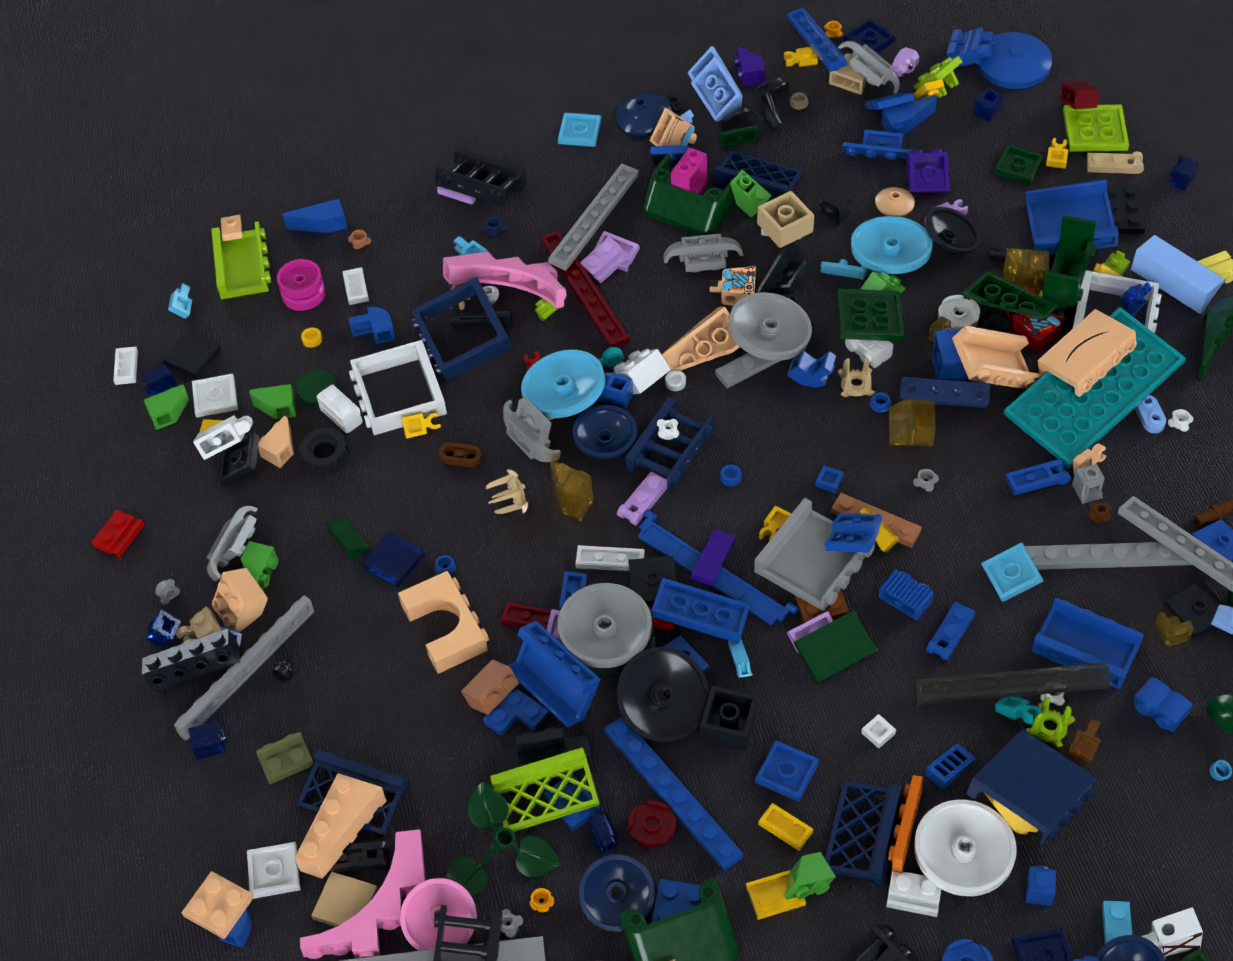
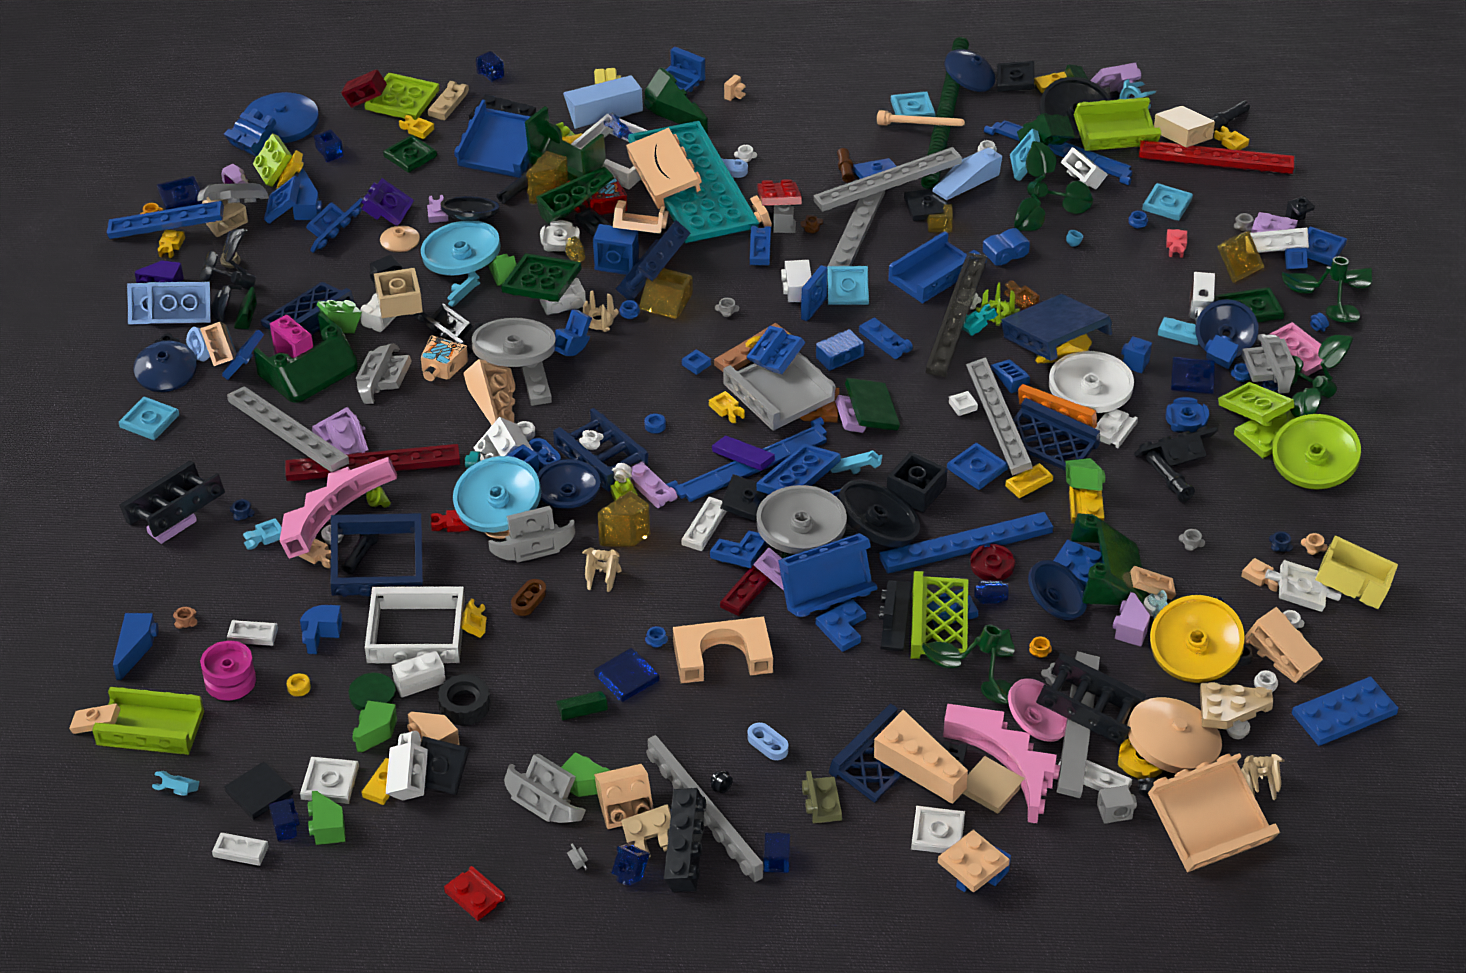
camera: 75 degrees left, 10 degrees down
(339, 694) = (770, 743): none -> light blue plate
(490, 687) = (814, 628): nougat brick -> none
(624, 481) = (621, 489): none -> lime tile
(639, 469) = (622, 472): none -> white plate
(644, 404) = (545, 452): none -> blue plate
(866, 769) = (999, 416): none -> light grey plate
(972, 542) = (814, 293): none -> blue tile
(991, 525) = (795, 276): none -> white brick
(1114, 464) = (779, 193): none -> red plate

